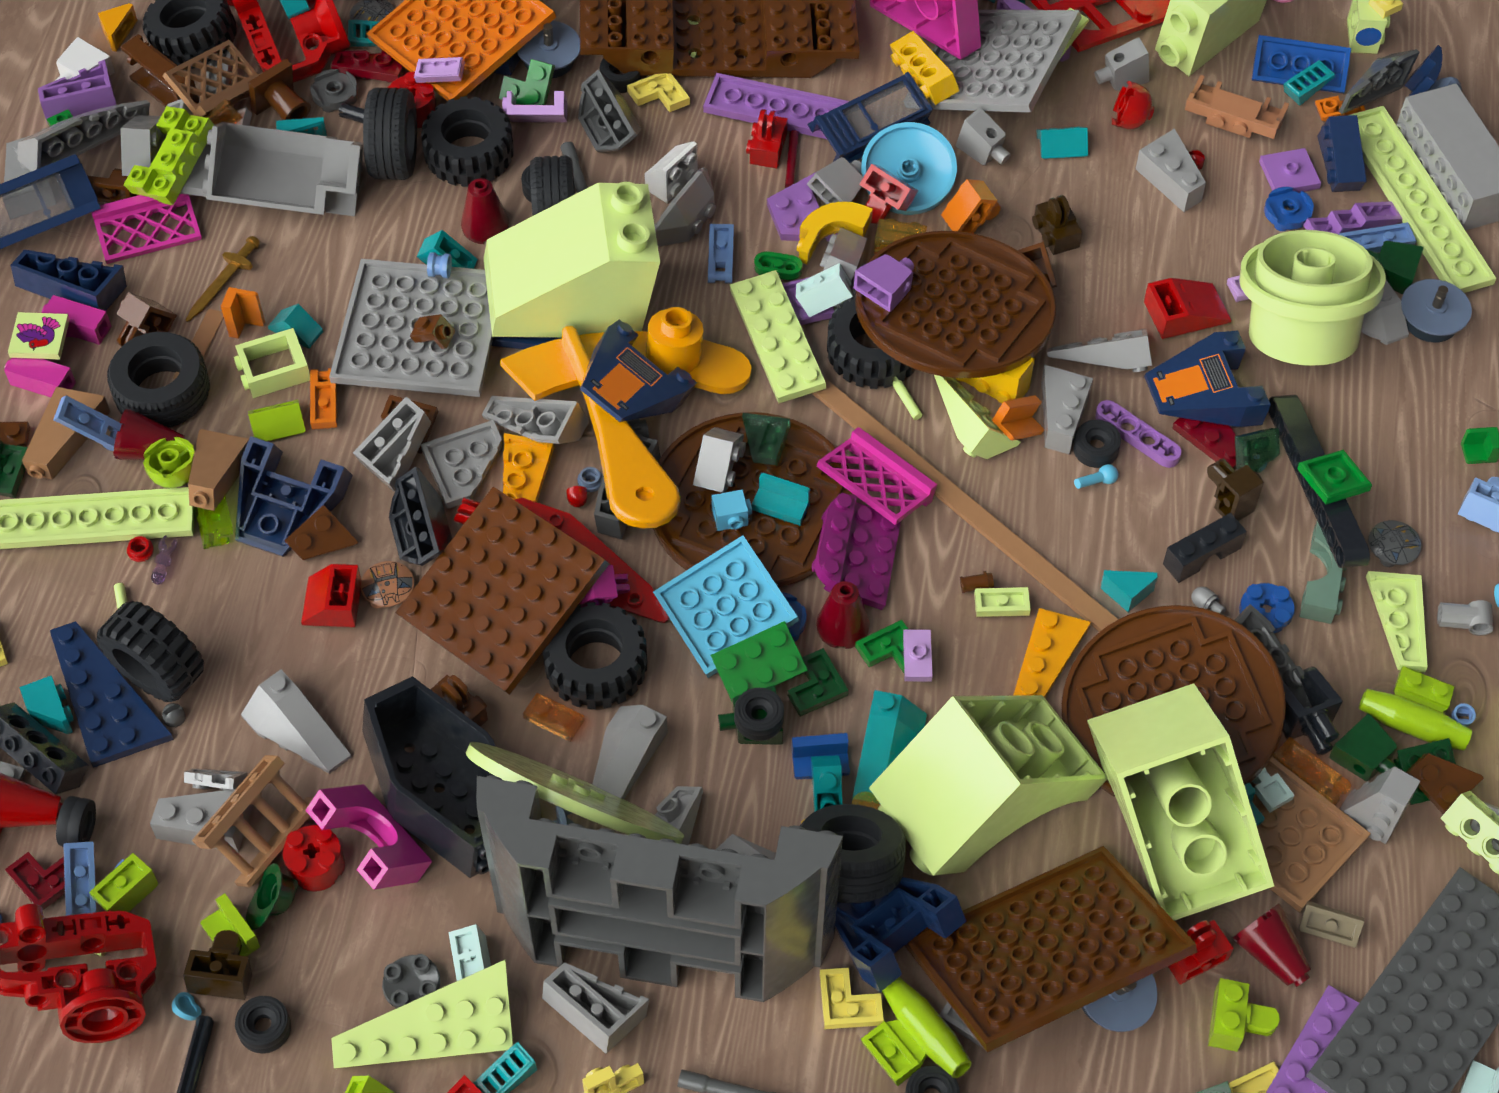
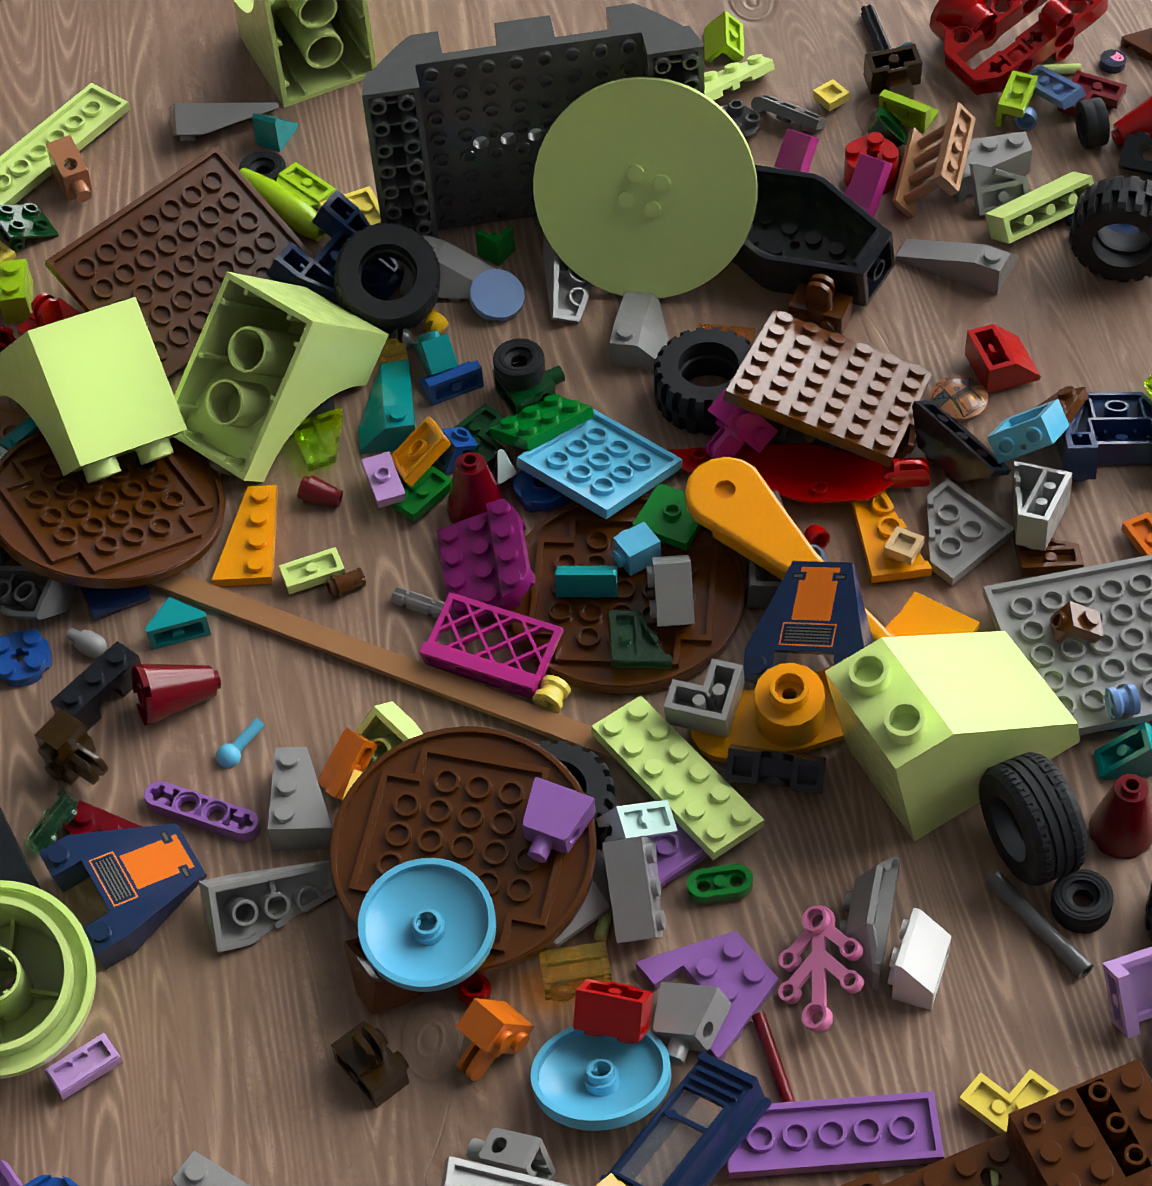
camera: 165 degrees right, 5 degrees down
(191, 743) = (1037, 208): none -> yellowish green brick
(274, 1036) = (836, 51): black tyre -> none
(295, 977) = (831, 95): none -> light yellow plate
(348, 515) = (1033, 427): none -> medium azure window
(351, 965) = (788, 112): none -> dark grey plate
(518, 446) = (903, 545): none -> tan plate
(539, 420) = (890, 584): light grey wedge -> none
(606, 114) = (1046, 1020): dark grey wedge -> none
(686, 538) = (668, 517): none -> green plate
(720, 252) = (799, 875): medium blue plate -> none
(723, 325) = (782, 768): none -> black arch
(727, 202) = (816, 965): none -> bright pink plant
(733, 360) = (709, 706): none -> light grey brick
(745, 832) = (496, 295): none -> medium blue tile
(768, 139) = (817, 1064): red brick -> none
(809, 634) = (503, 467): none -> light aqua slope
(827, 221) = (671, 953): yellow arch -> none
(842, 430) = (552, 693): none -> light yellow wheel
(844, 670) = (460, 441): none -> blue bracket
(877, 666) = (420, 450): none -> light orange plate
(920, 546) = (417, 602): none -> light grey axle
(976, 675) = (316, 491): none -> dark red cone
(999, 245) = (427, 924): none -> medium azure dish
(1101, 431) = (242, 762): black tyre -> none
(1143, 523) = (171, 688): none -> dark red cone
(1184, 306) = (169, 992): red slope -> none

